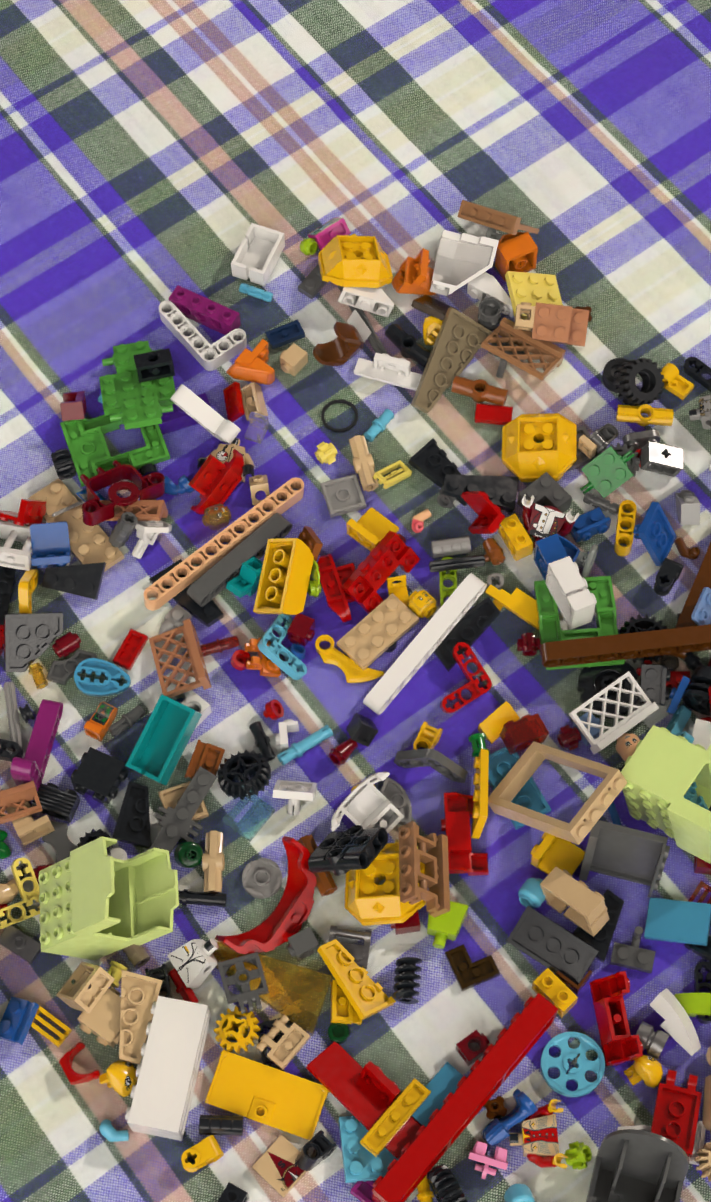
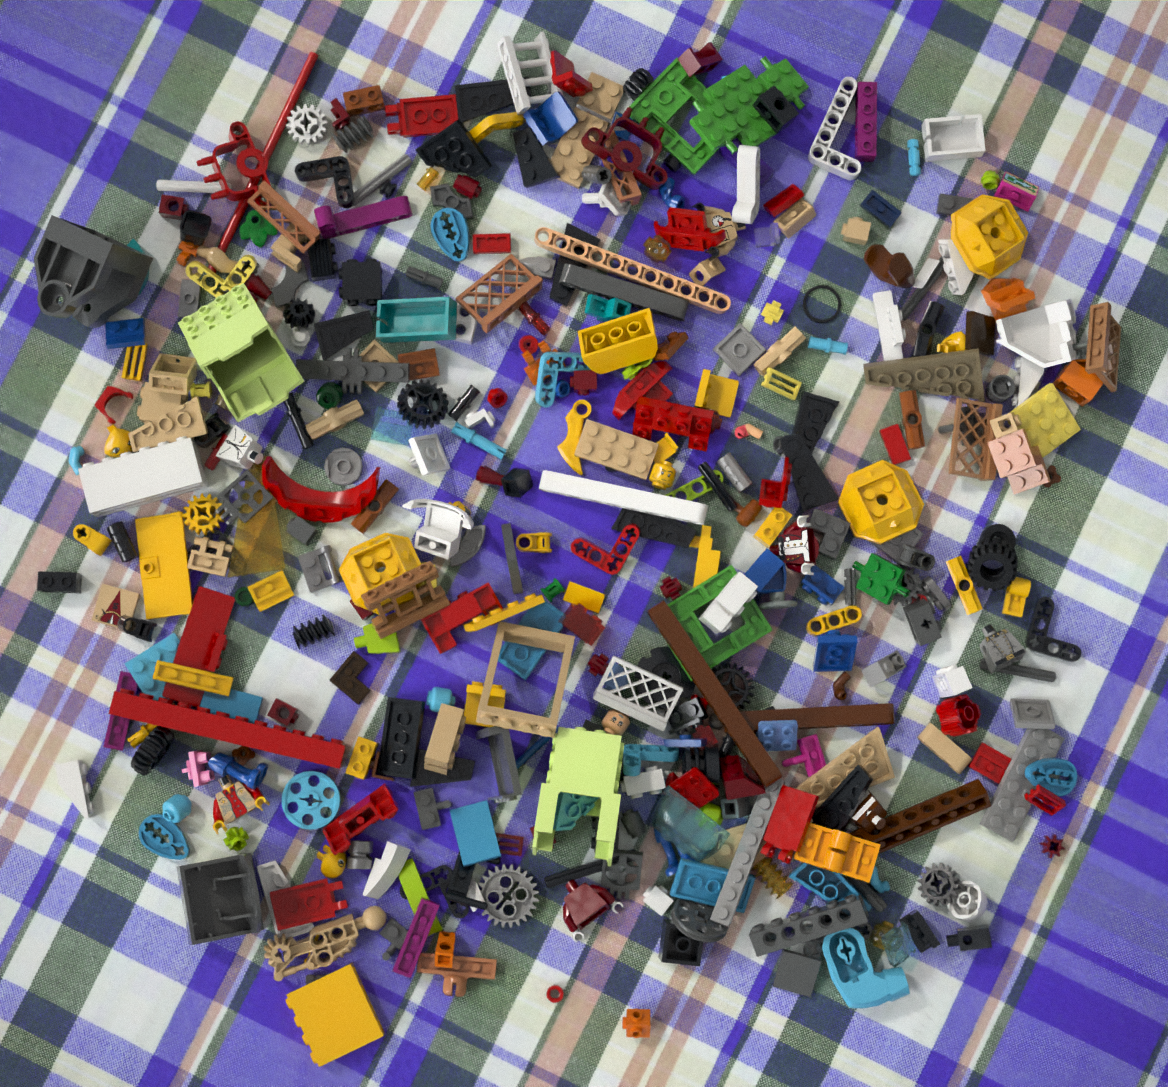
camera: 60 degrees right, 20 degrees up
(100, 721) = (413, 255): orange leg -> none
(253, 365) = (825, 196): orange piece -> none
(348, 850) = (389, 528): black connector -> none
(358, 987) = (284, 597): yellow wing -> none
(495, 576) = (723, 534): light grey bush -> none
(587, 446) = (897, 547): tan tile -> none
(667, 576) = (806, 680): black piece -> none

